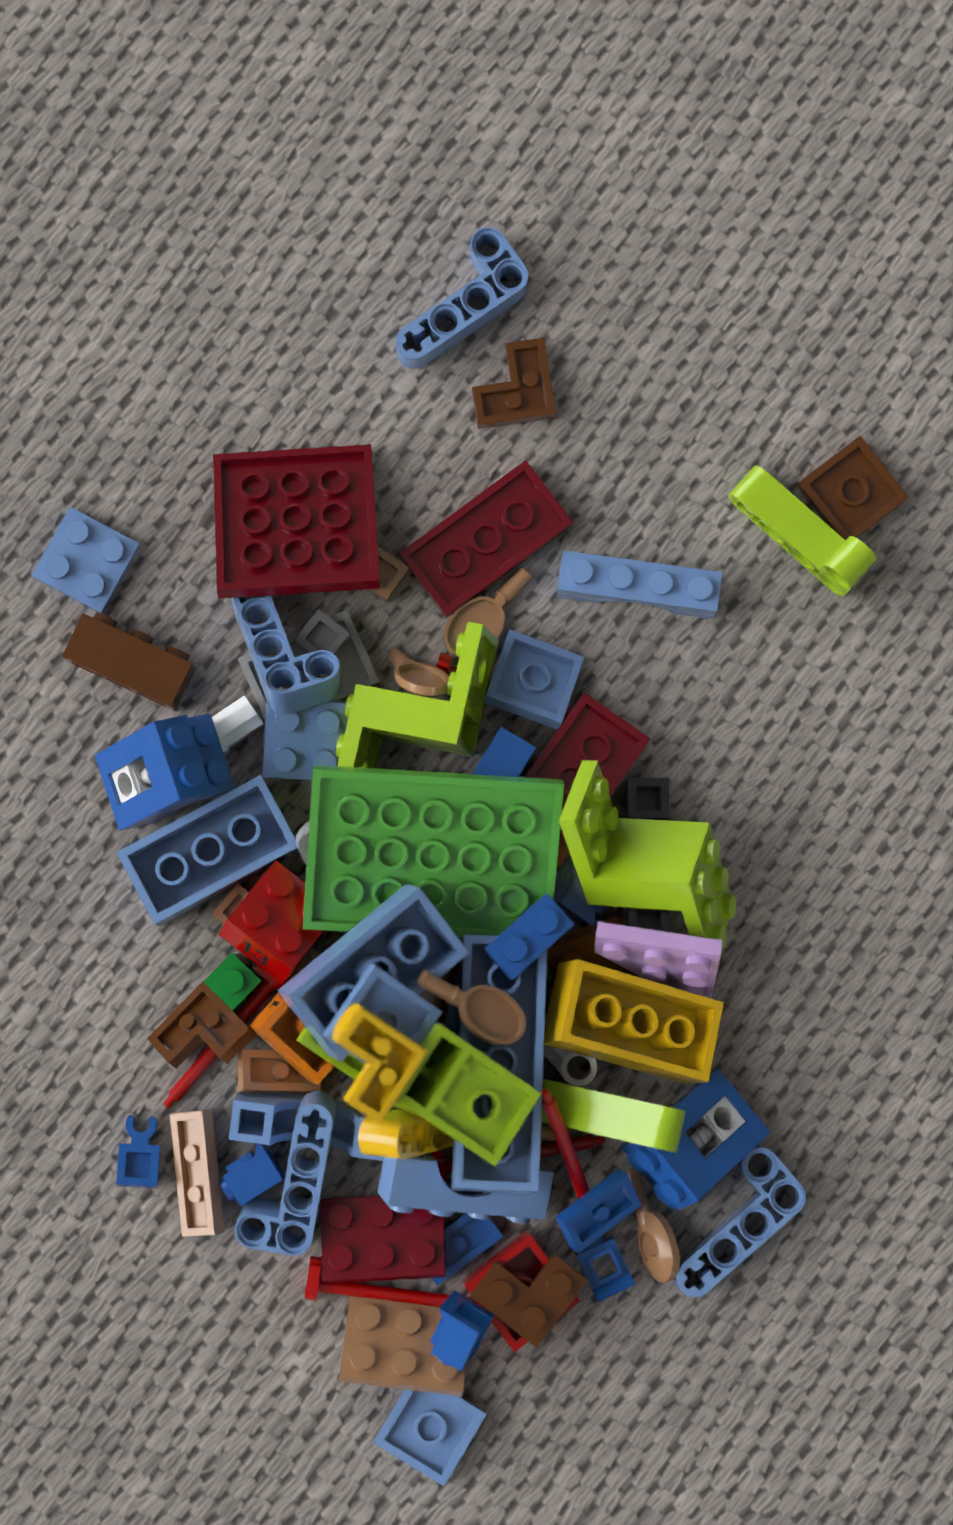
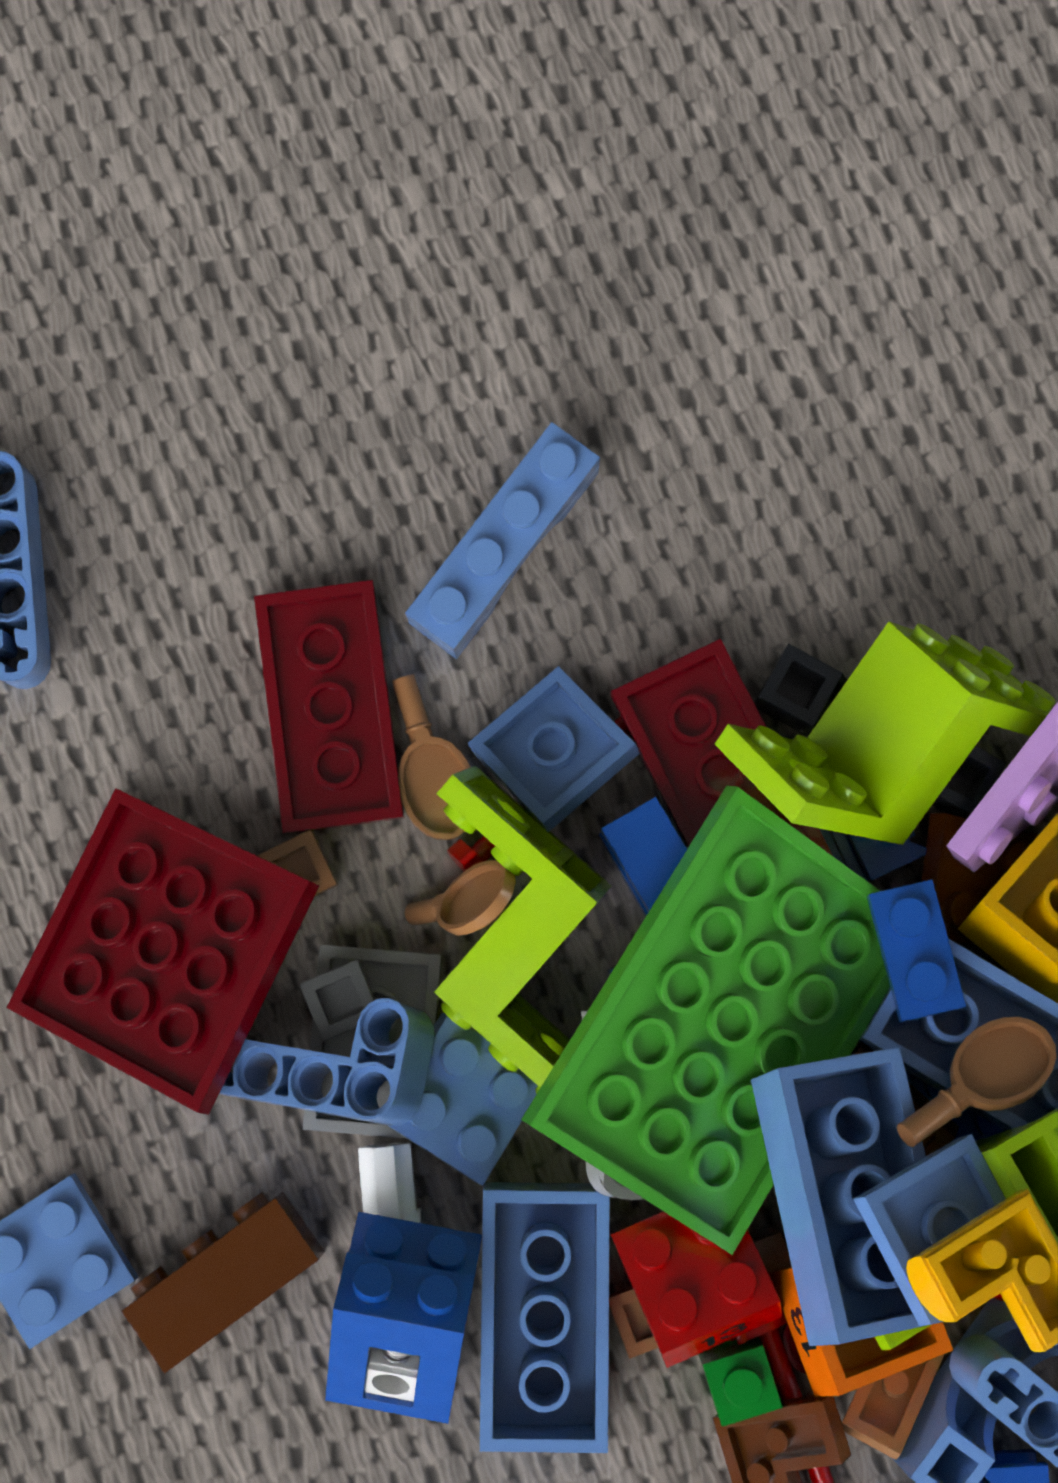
camera: 50 degrees left, 0 degrees up
(526, 395) = (168, 552): reddish brown plate -> none
(801, 532) = (556, 293): lime beam -> none
(852, 490) = (535, 201): reddish brown plate -> none

